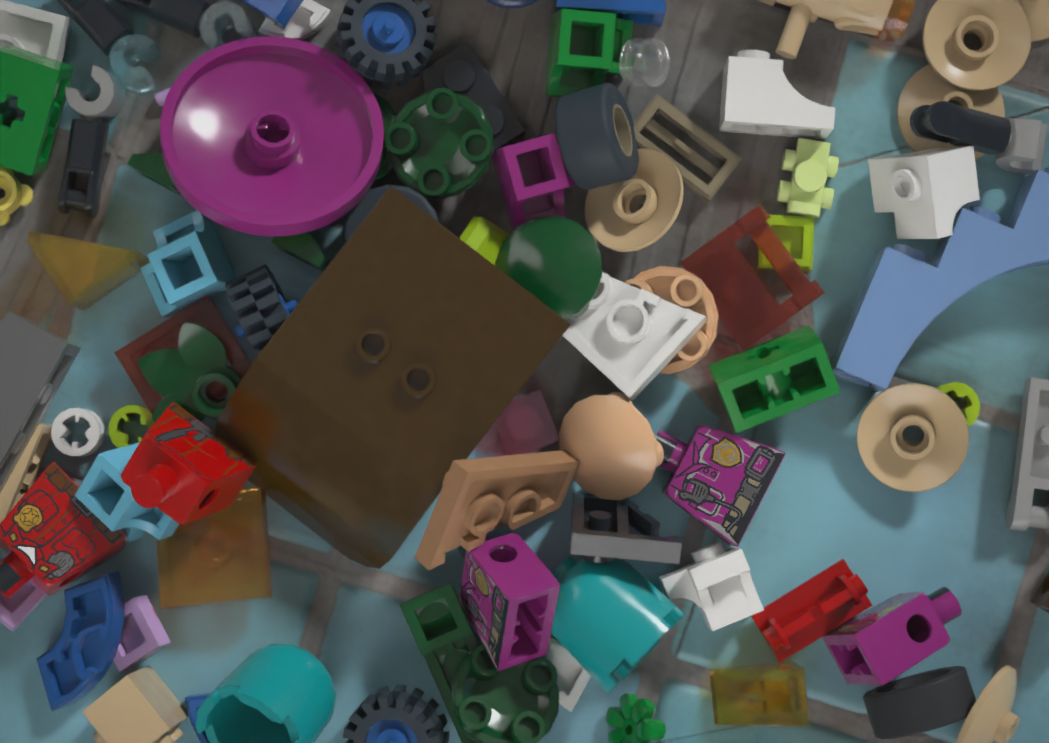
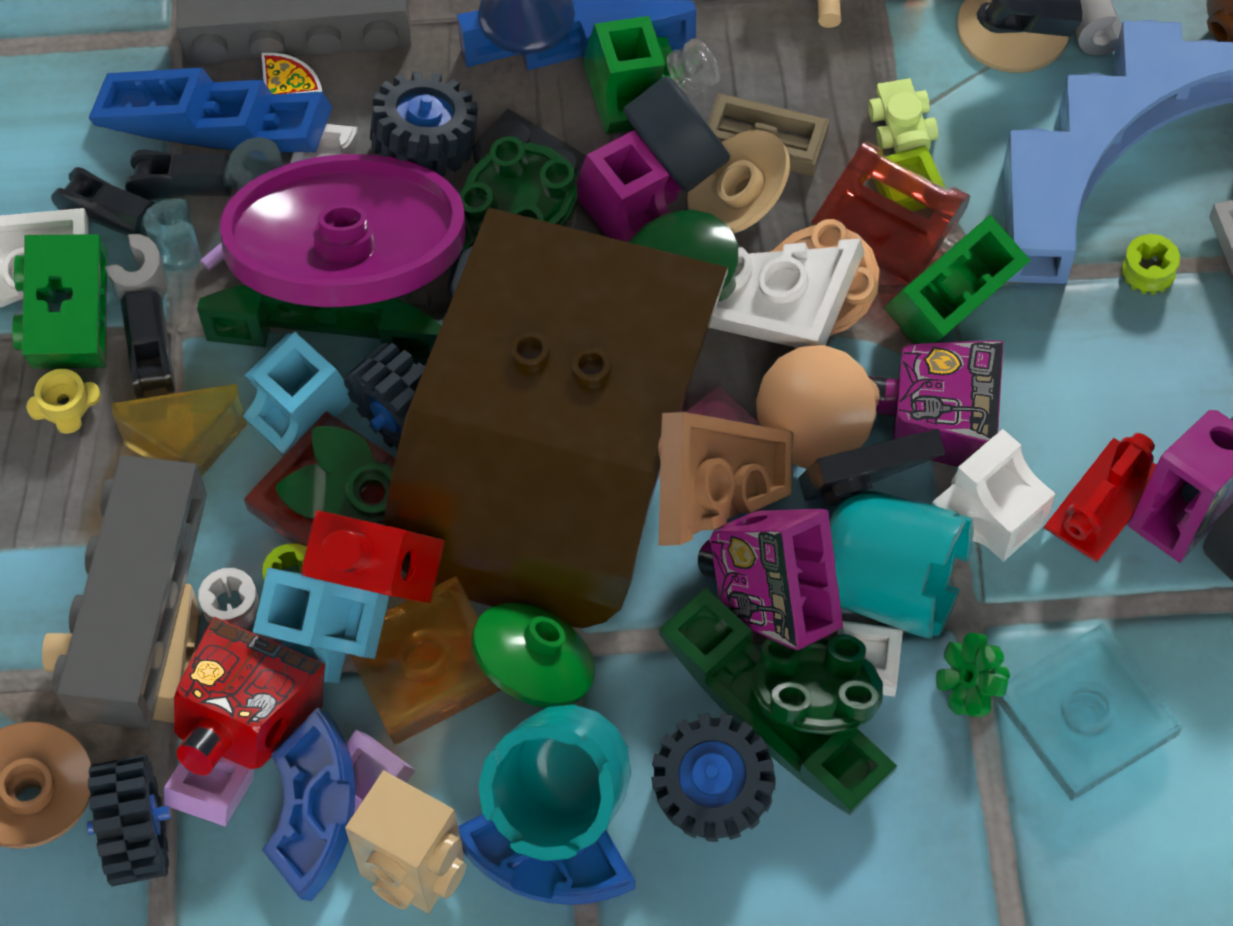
camera: 20 degrees left, 25 degrees down
(275, 587) = (532, 655): none -> green dish
(760, 695) = (1101, 585): clear yellow slope -> none
(763, 102) = (832, 64): white arch -> none
(908, 464) = (1132, 267): tan dish -> none
(924, 189) = (1019, 76): white brick -> none

